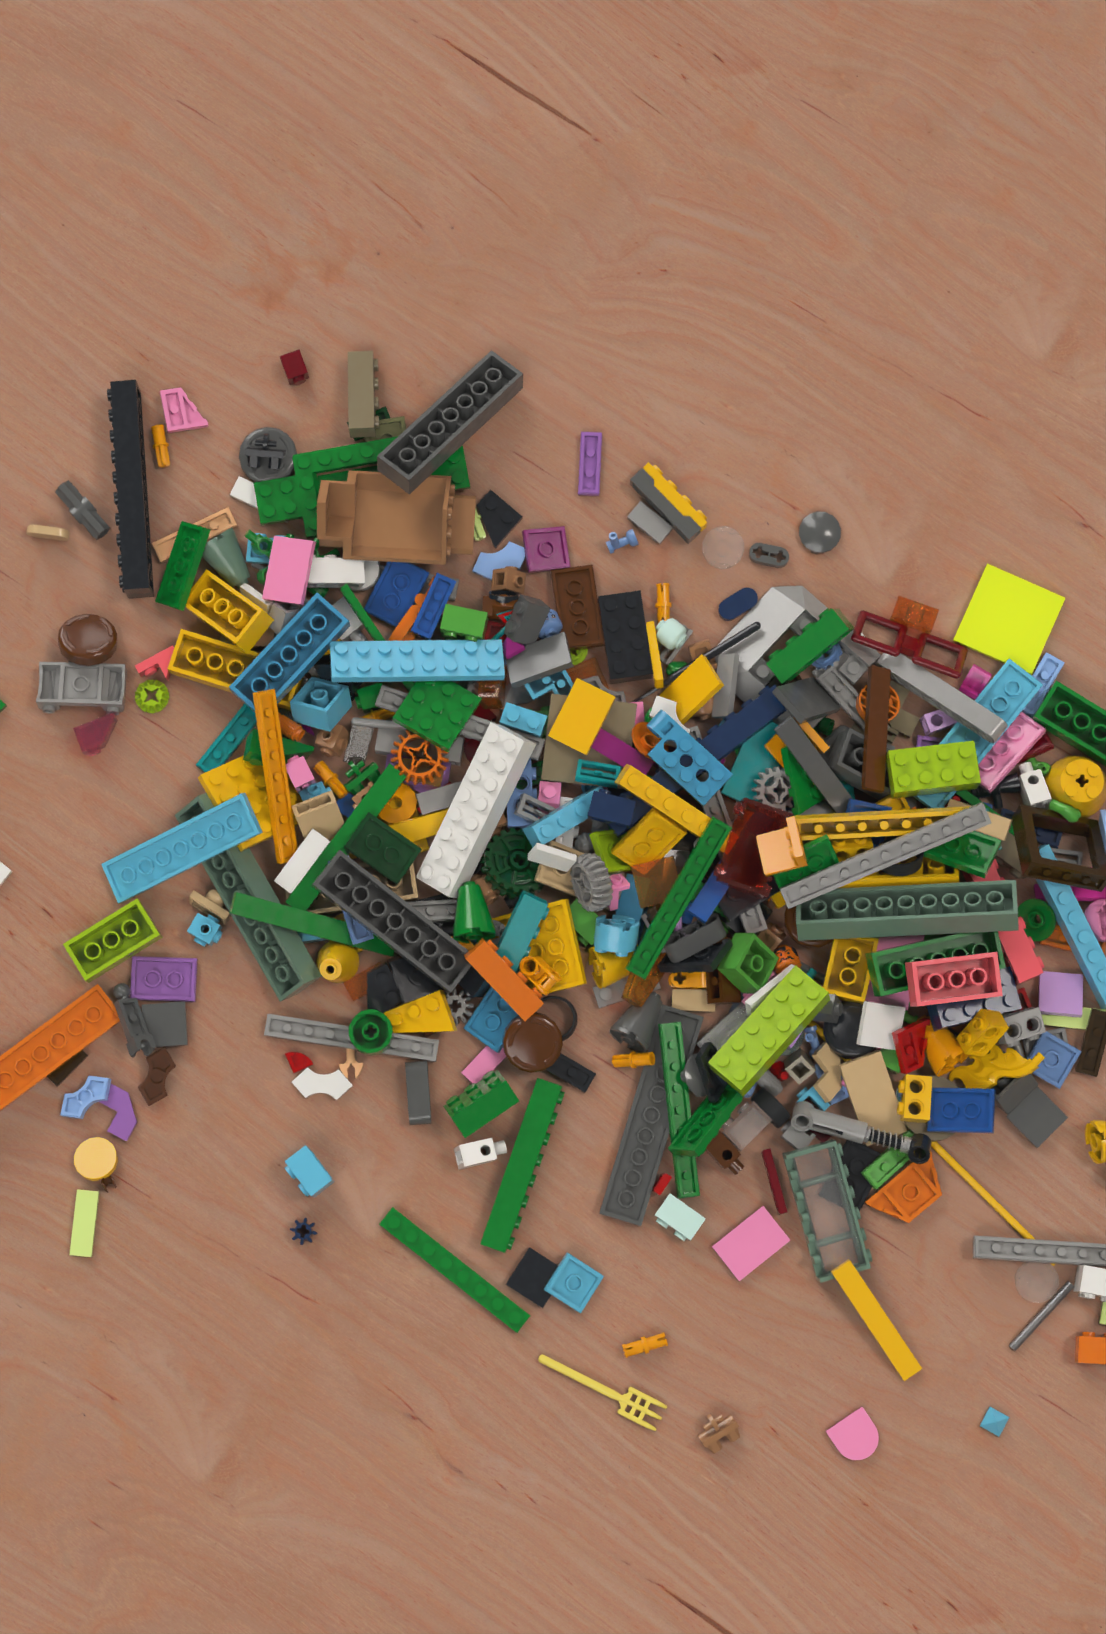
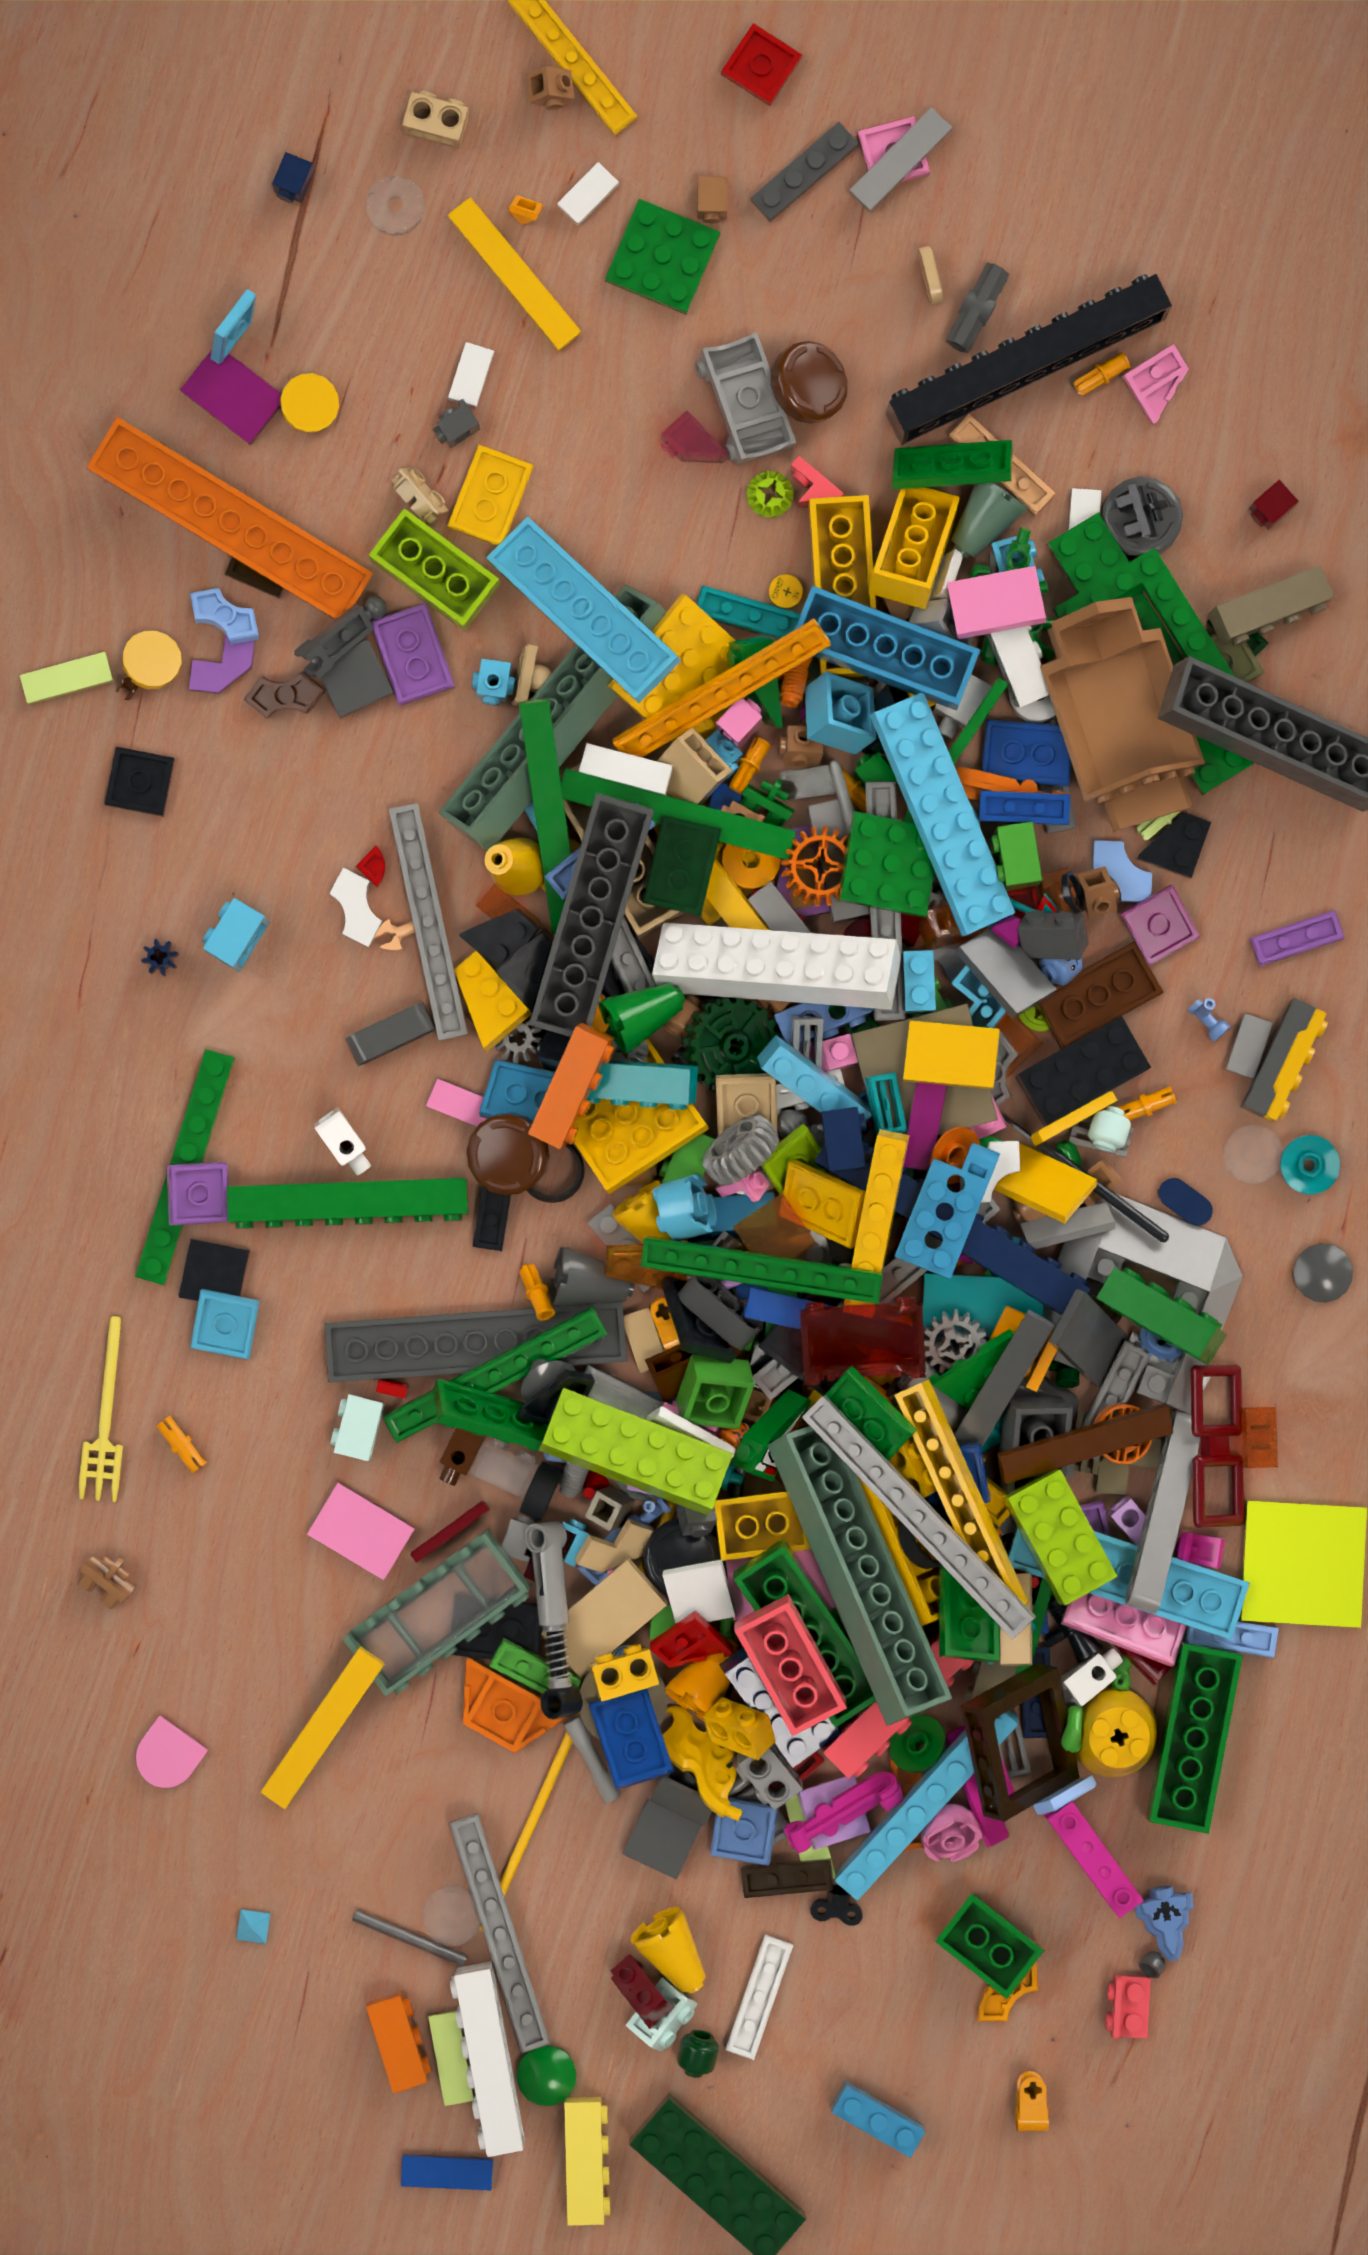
camera: 65 degrees right, 5 degrees up
(18, 888) = (456, 425): none -> dark grey brick
(63, 927) = (413, 485): none -> tan hinge
(76, 884) = (490, 496): none -> yellow tile
(176, 1200) = (139, 781): none -> black tile
(222, 711) = (785, 591): none -> yellow piece
(361, 1025) = (447, 927): green brick -> none
(476, 1266) = (197, 1193): none -> medium lavender tile
(481, 1103) = (405, 1118): green brick -> none
(543, 976) = (597, 1135): light orange piece -> none
(552, 857) = (752, 1086): white tile -> none
(744, 502) = (1325, 1162): none -> teal dish
(770, 550) = (1273, 1218): dark grey beam -> none
(782, 849) = (873, 1379): light orange bracket -> none
(785, 931) = (777, 1421): none -> green slope
(951, 1145) = (582, 1741): none -> light grey piece
(1061, 984) = (874, 1790): none -> dark pink piece

